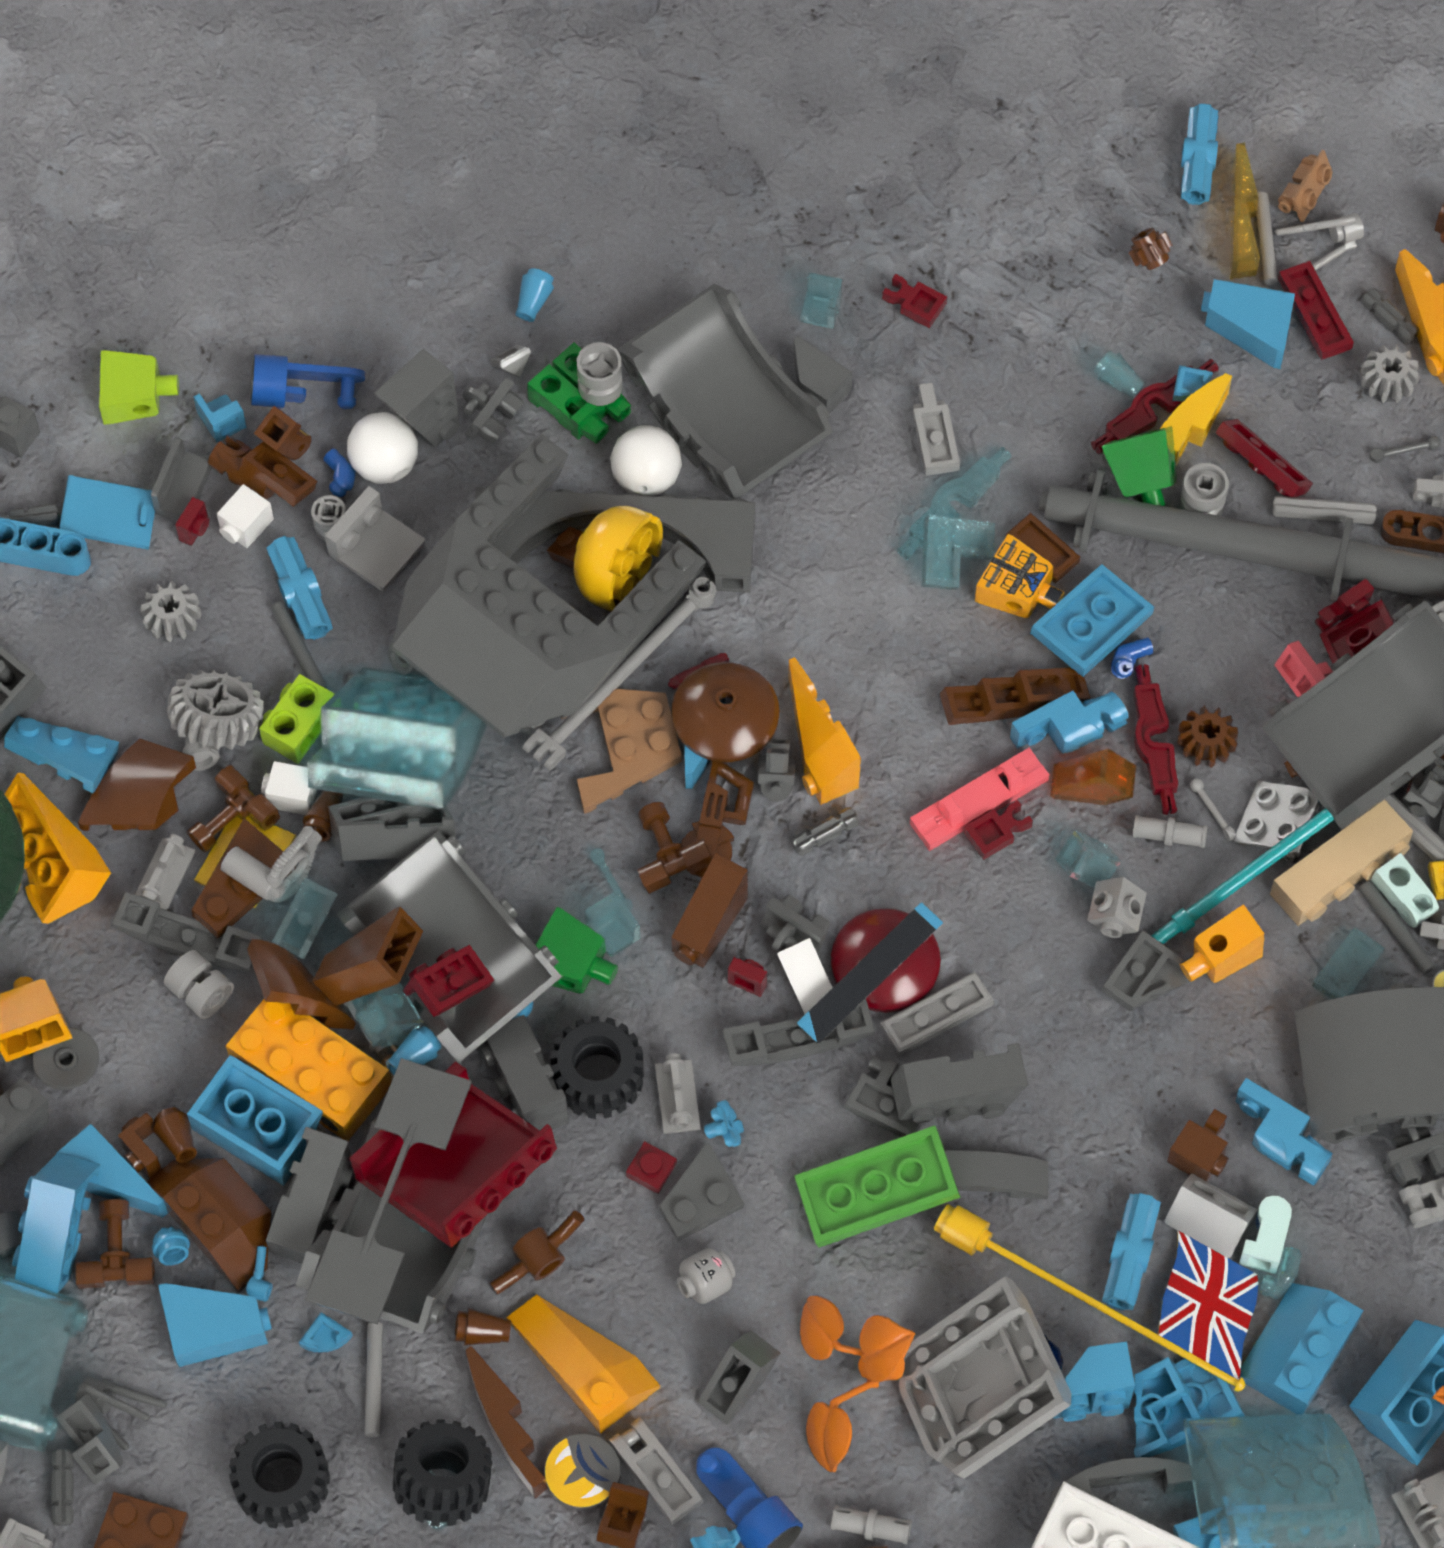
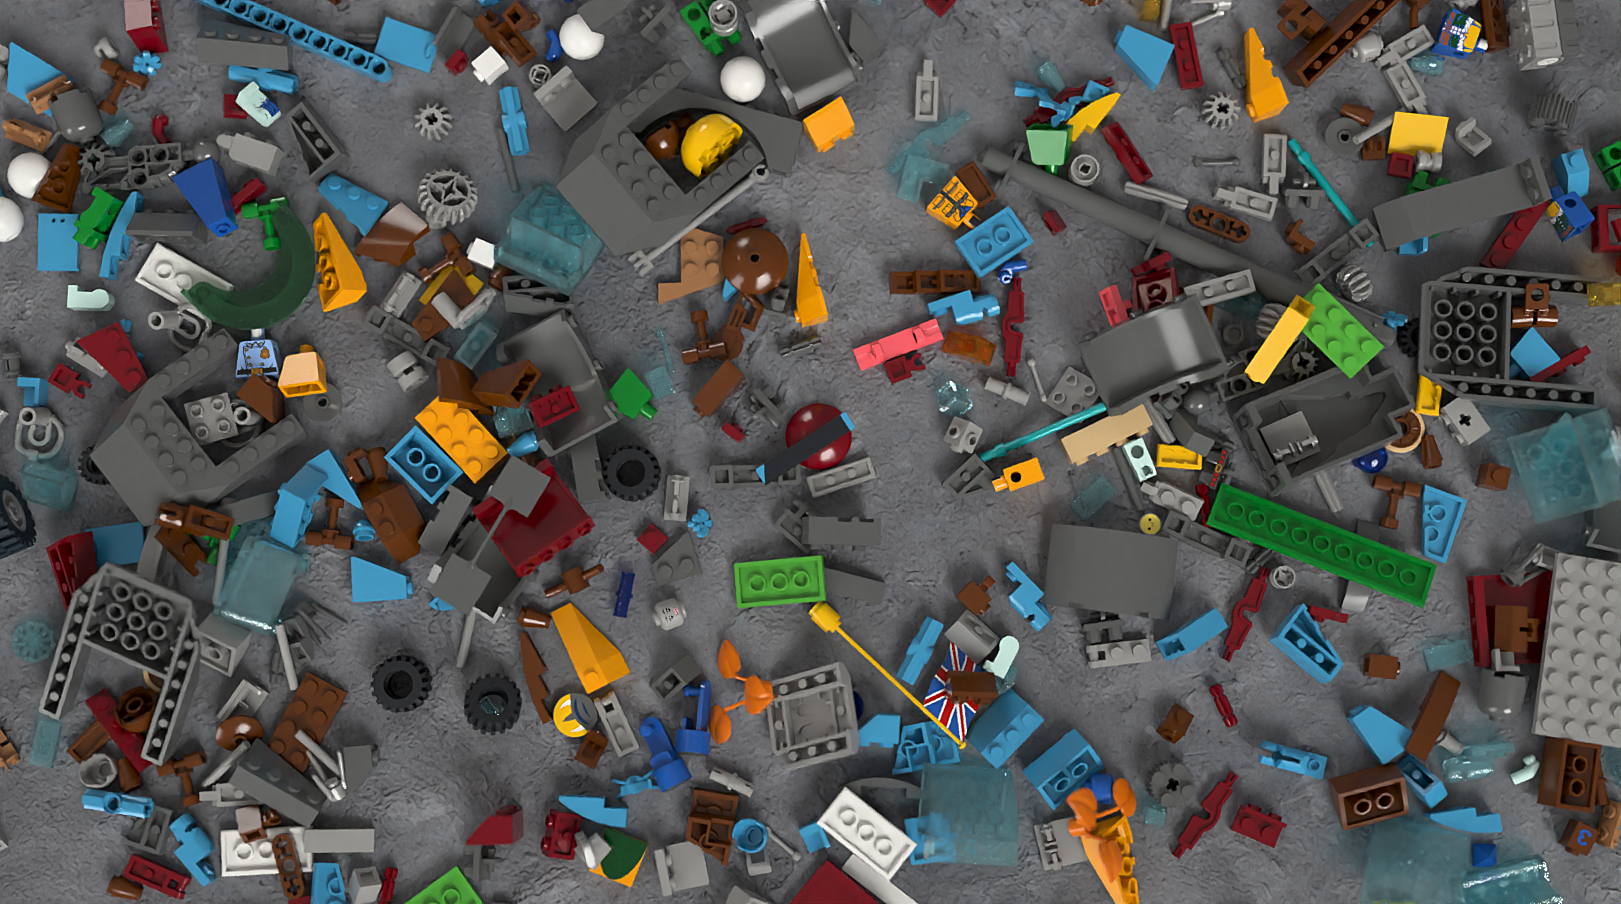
camera: 15 degrees right, 20 degrees up
(75, 1471) = (286, 656): none -> light grey bar
(257, 1286) = (411, 566): dark azure hand -> none
(303, 720) = (500, 211): lime brick -> none
(548, 564) = (664, 142): none -> reddish brown cylinder
(623, 1262) = (624, 594): none -> clear blue pin
(789, 1466) = (696, 741): none -> blue piece
(794, 499) = (829, 125): none -> light orange slope
(805, 973) = (768, 439): white sticker -> none
(1152, 410) = (1063, 110): none -> dark azure piece
(1176, 577) = (1053, 222): none -> dark red slope
(1220, 736) = (1039, 338): reddish brown gear -> none
(1228, 1286) = (970, 686): none -> reddish brown slope

